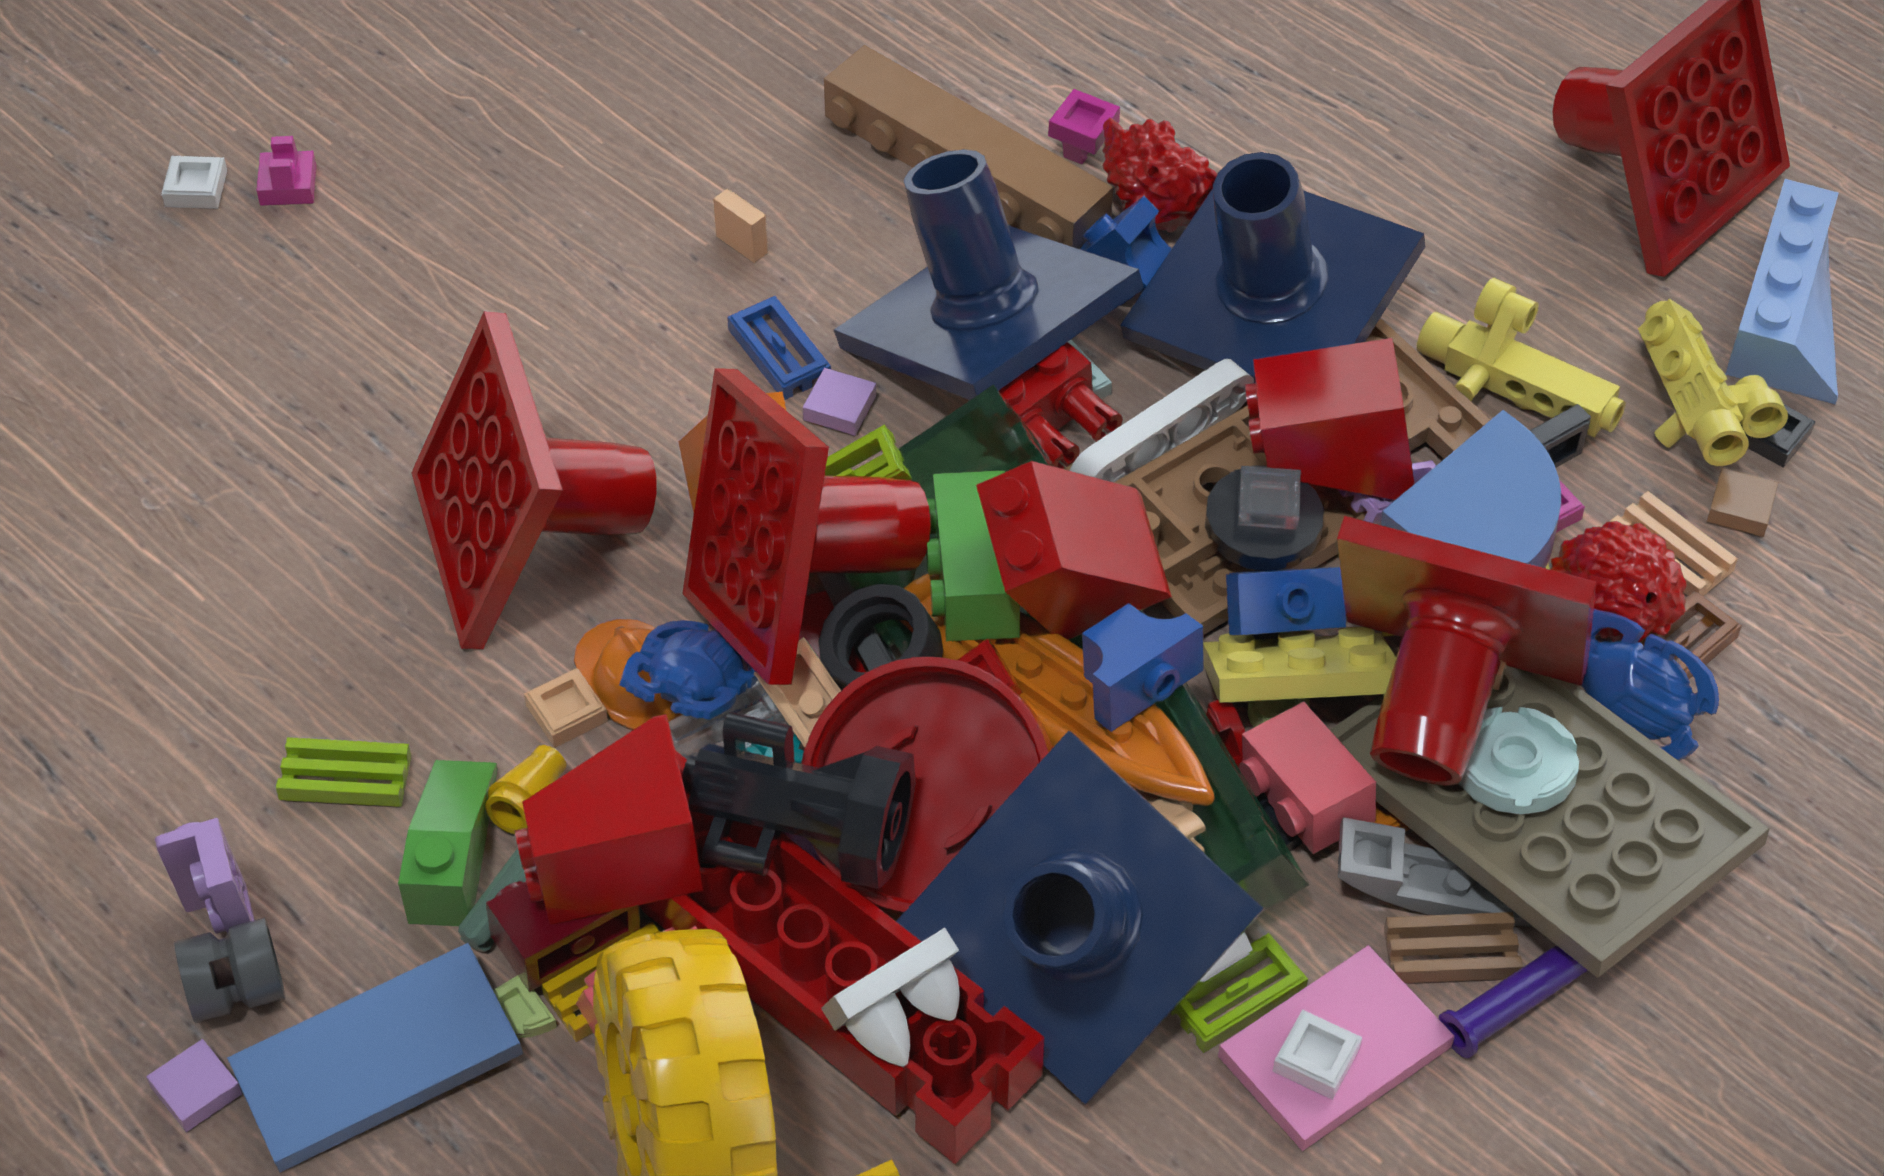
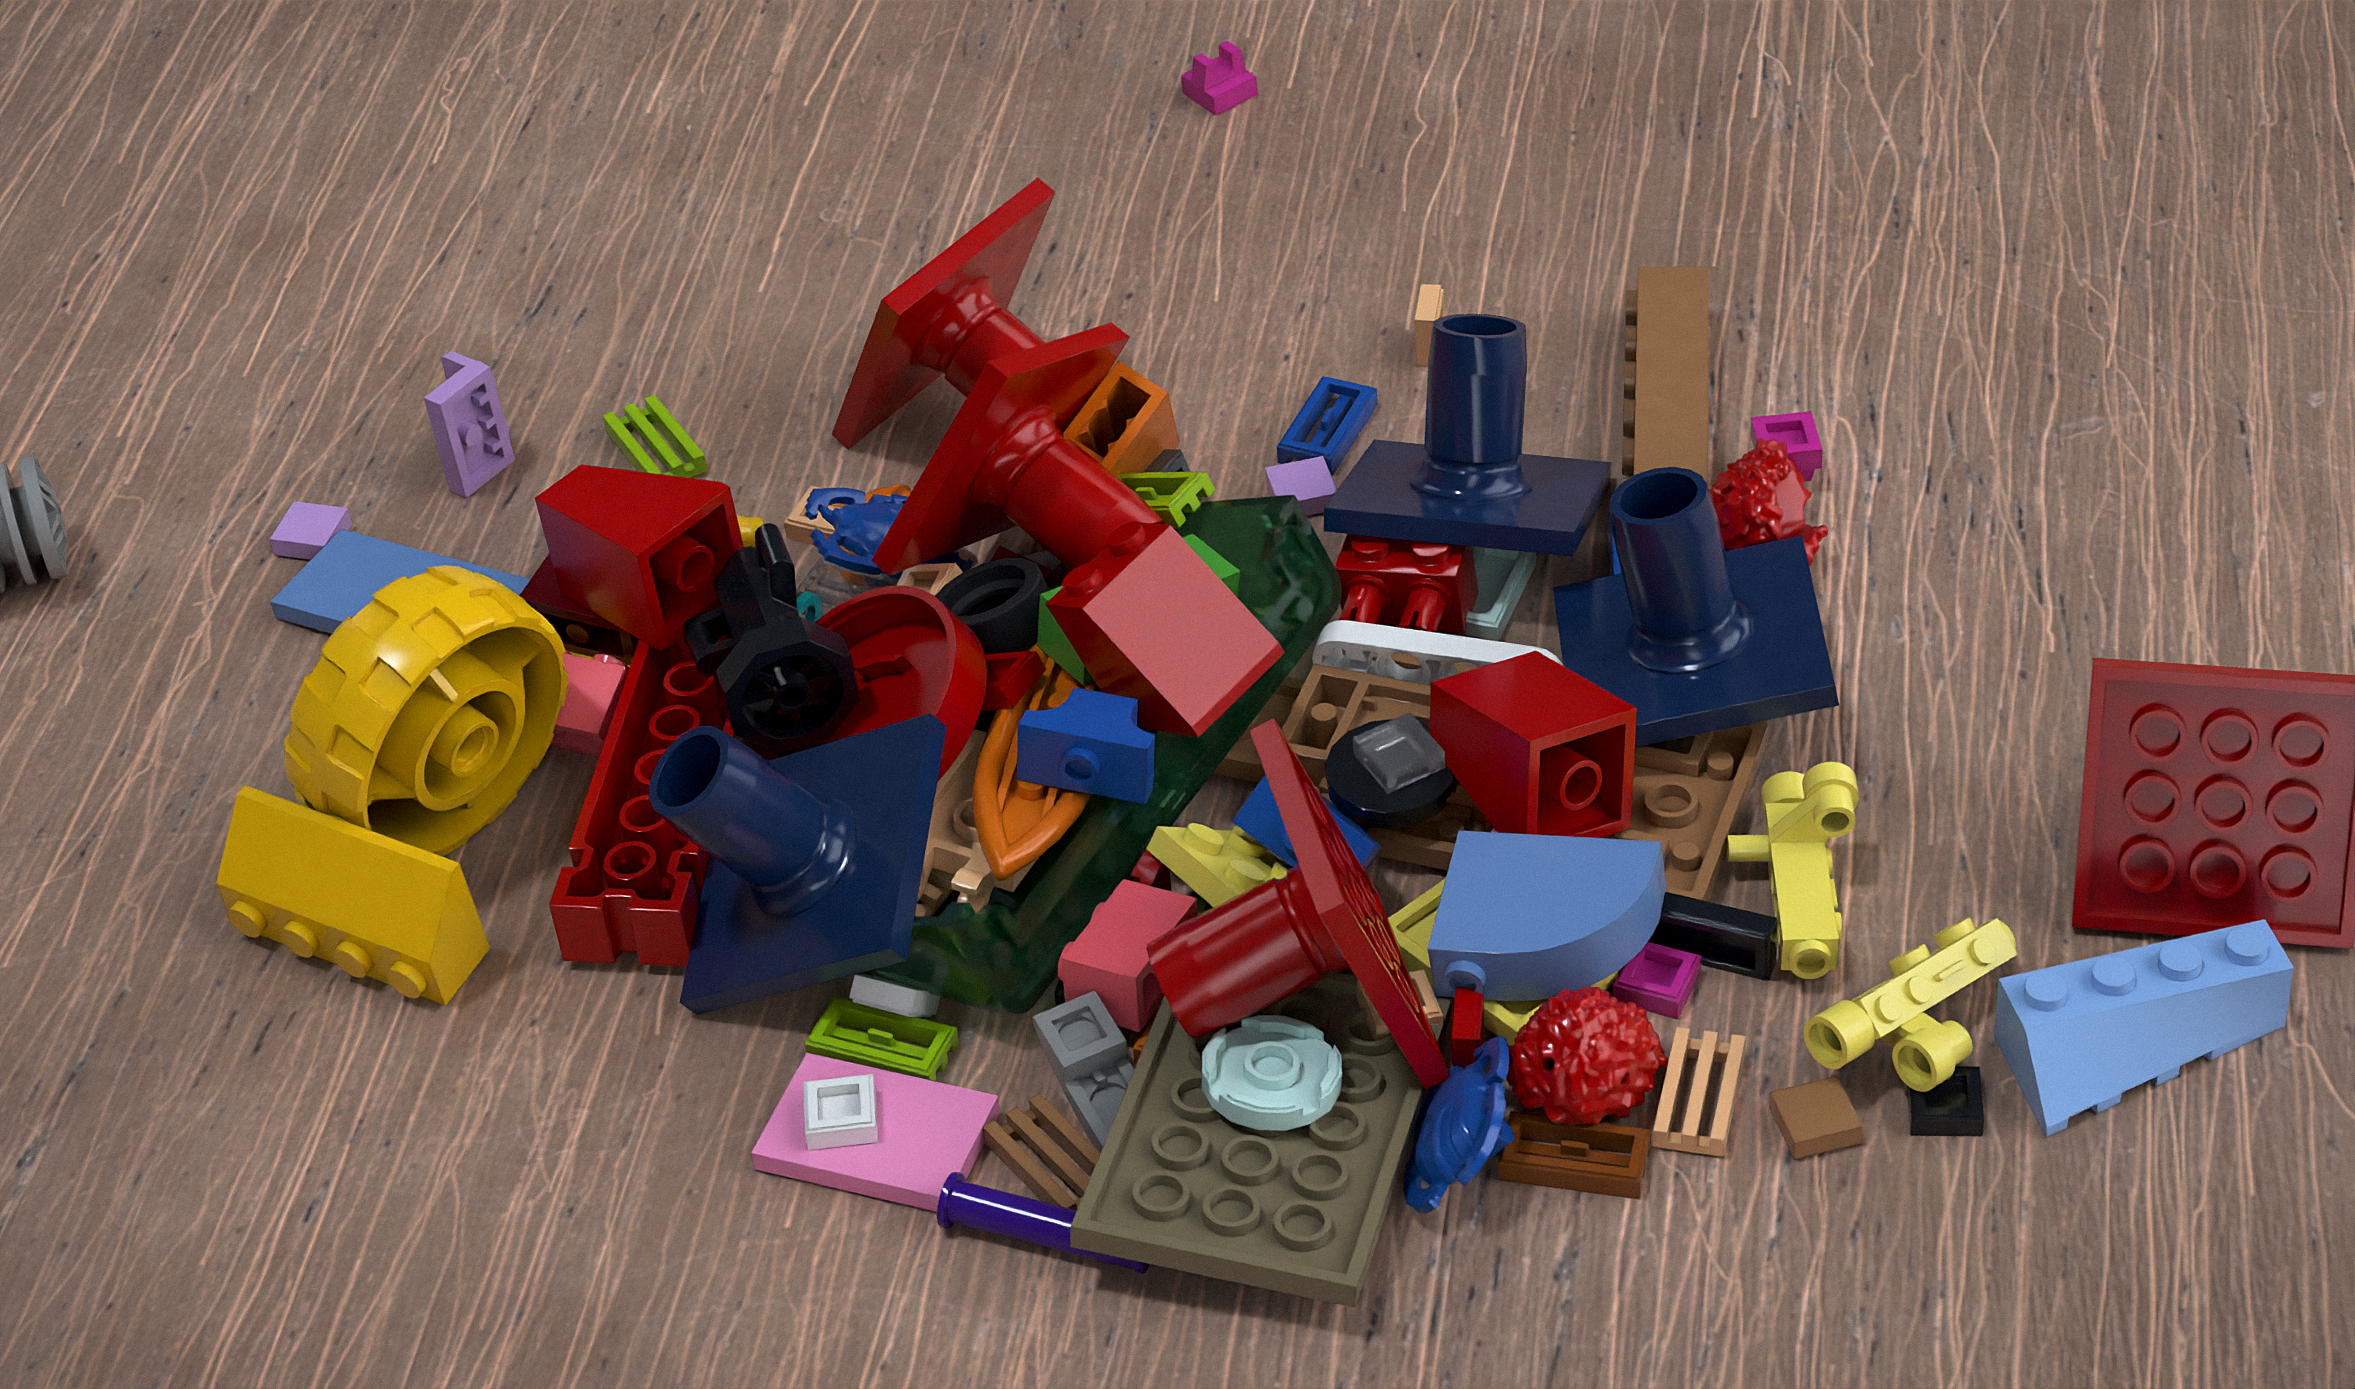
camera: 60 degrees right, 10 degrees down
(194, 182) = (1163, 46): white tile -> none
(252, 964) = (410, 481): dark grey wheel -> none
(875, 1012) = (605, 786): white tile -> none

